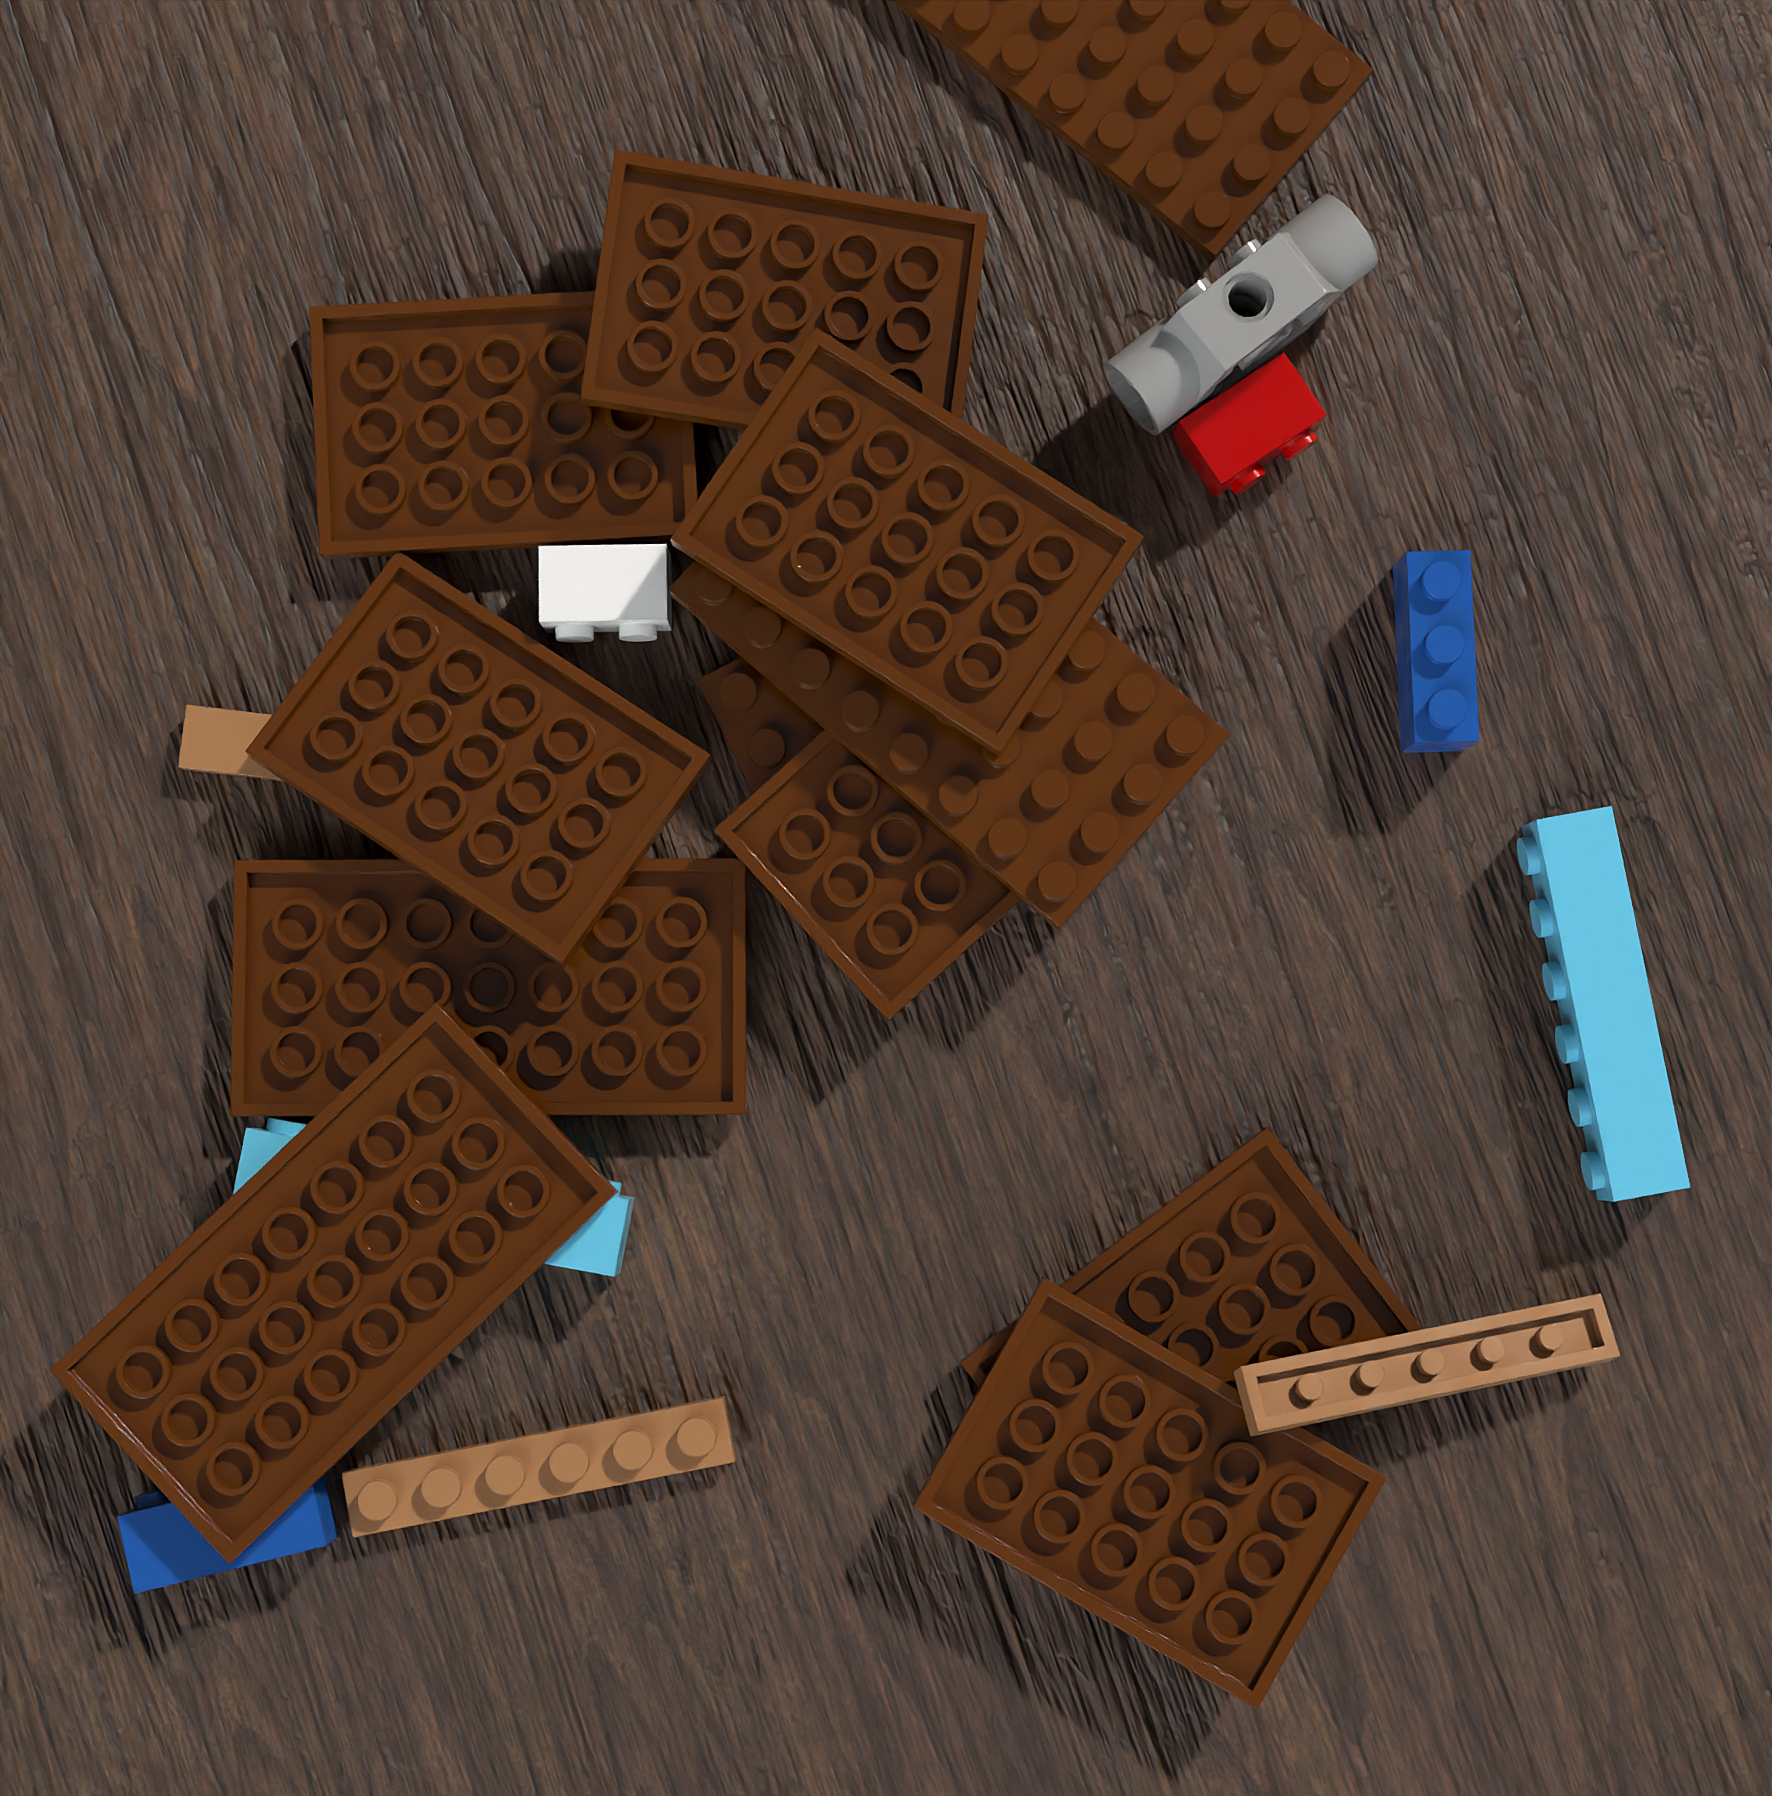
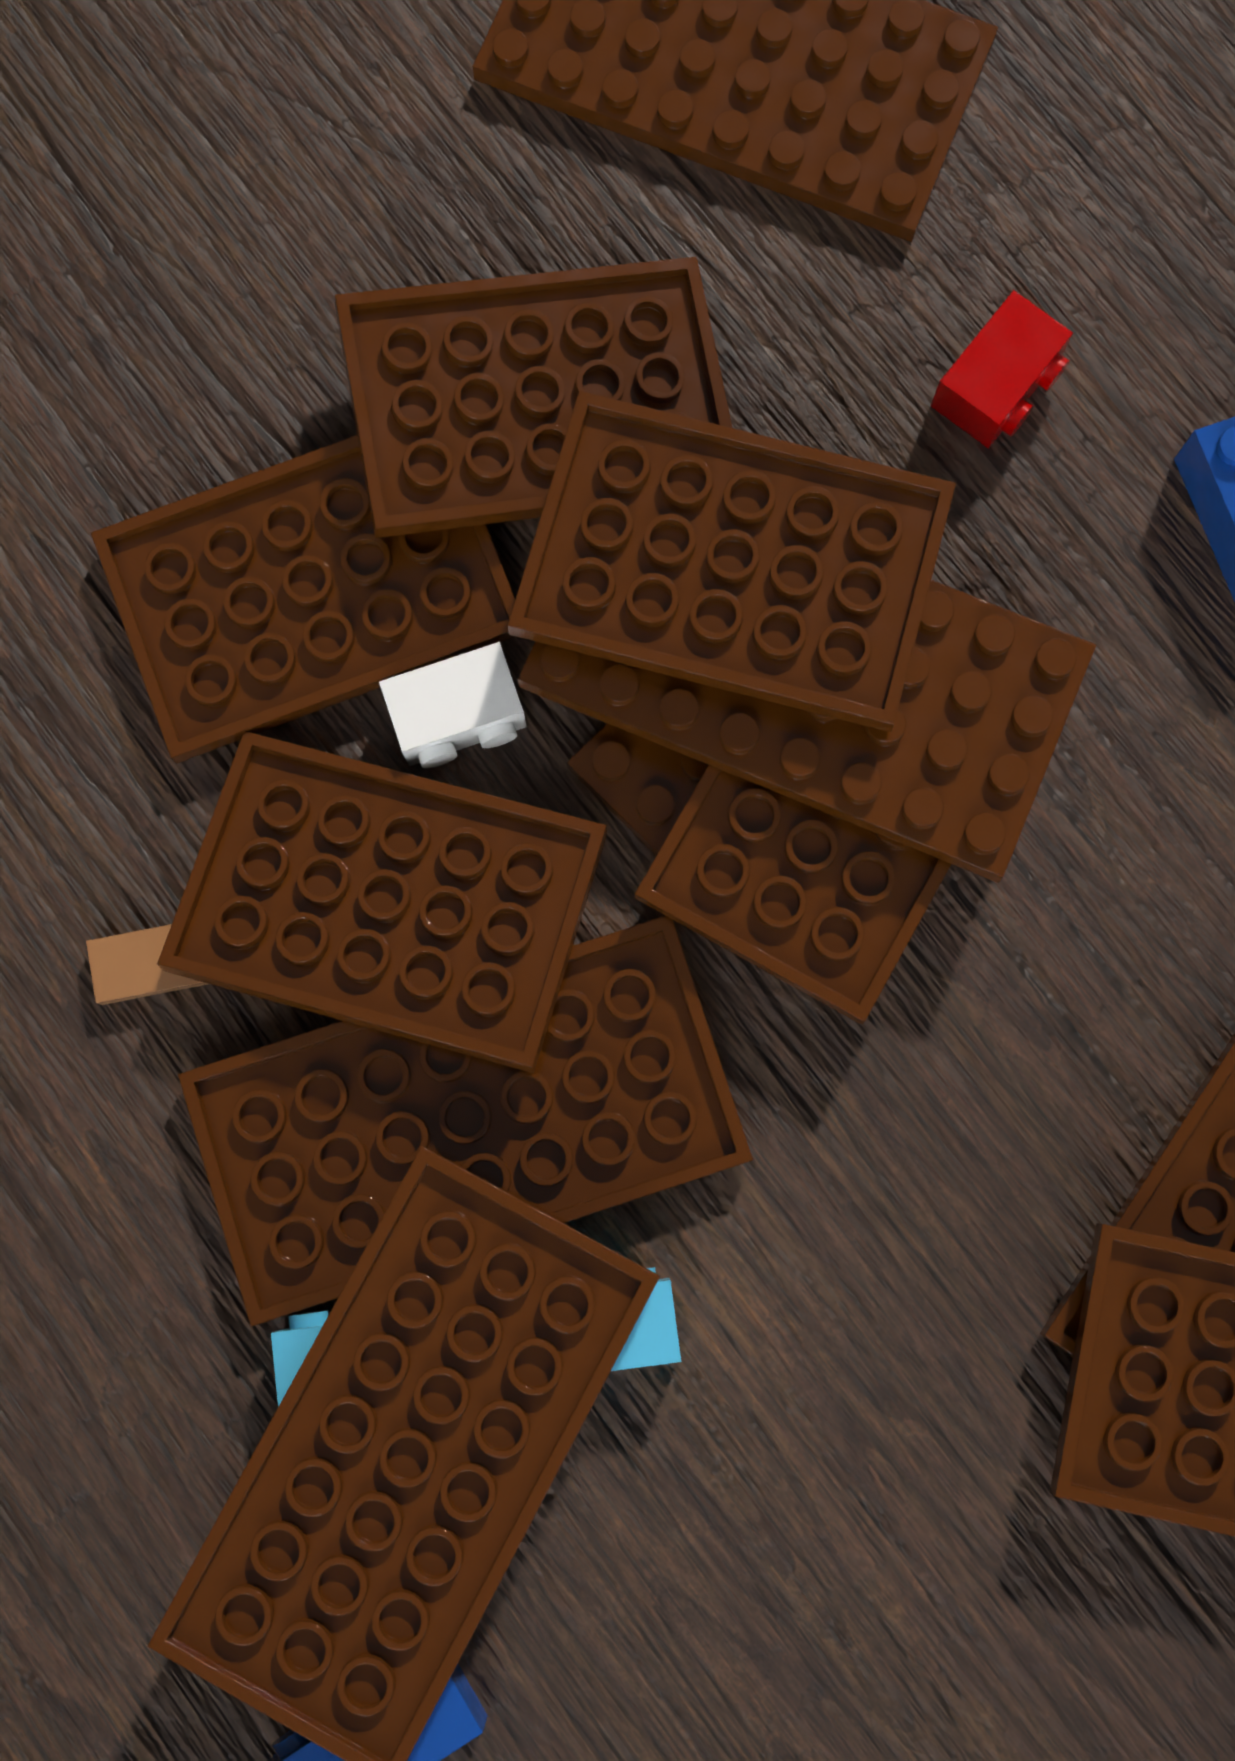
camera: 15 degrees left, 5 degrees down
(538, 1466) = (662, 1578): medium nougat plate -> none
(1275, 288) = (964, 270): light grey brick -> none

